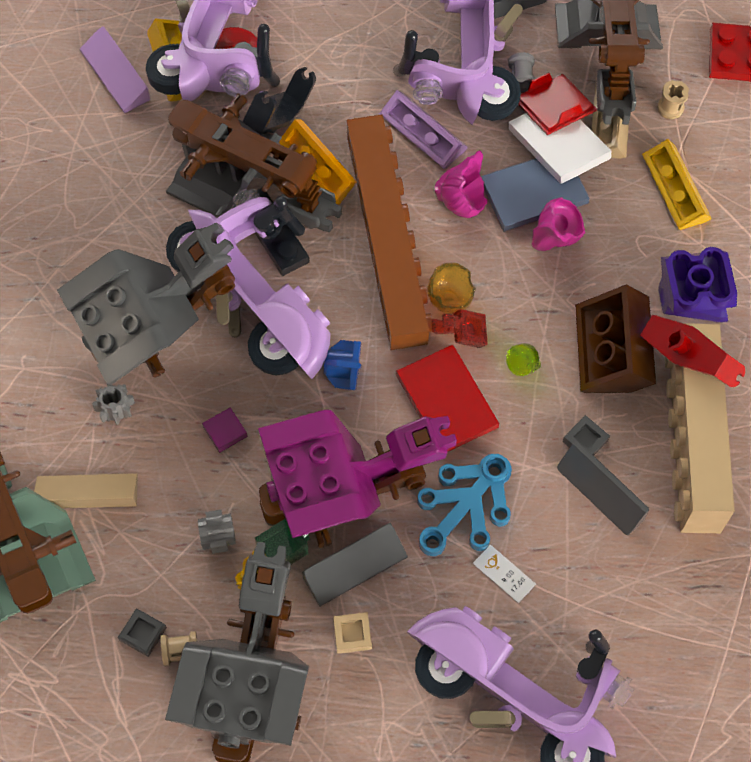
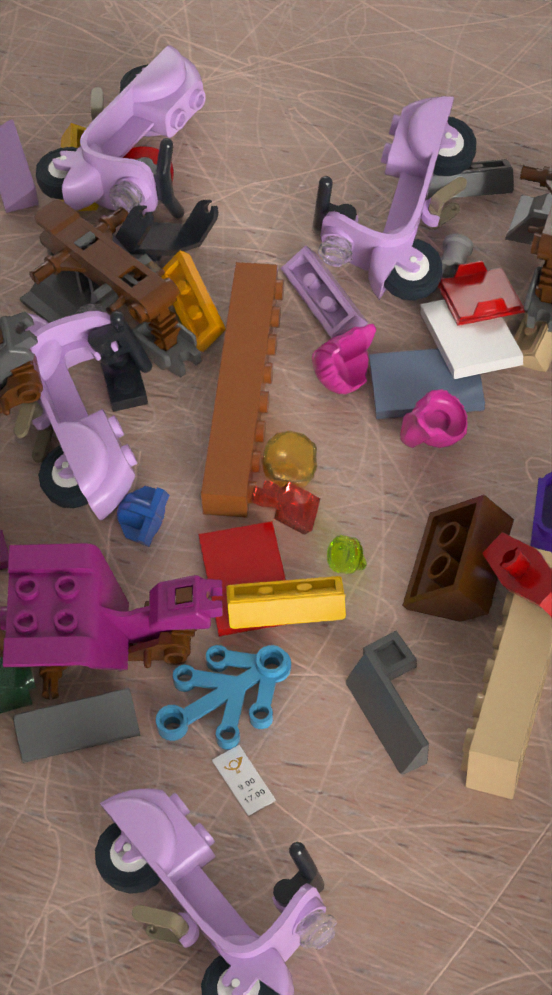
camera: 20 degrees right, 10 degrees down
(352, 632) = (43, 794): tan tile -> none
(492, 412) = (286, 602): none -> yellow slope

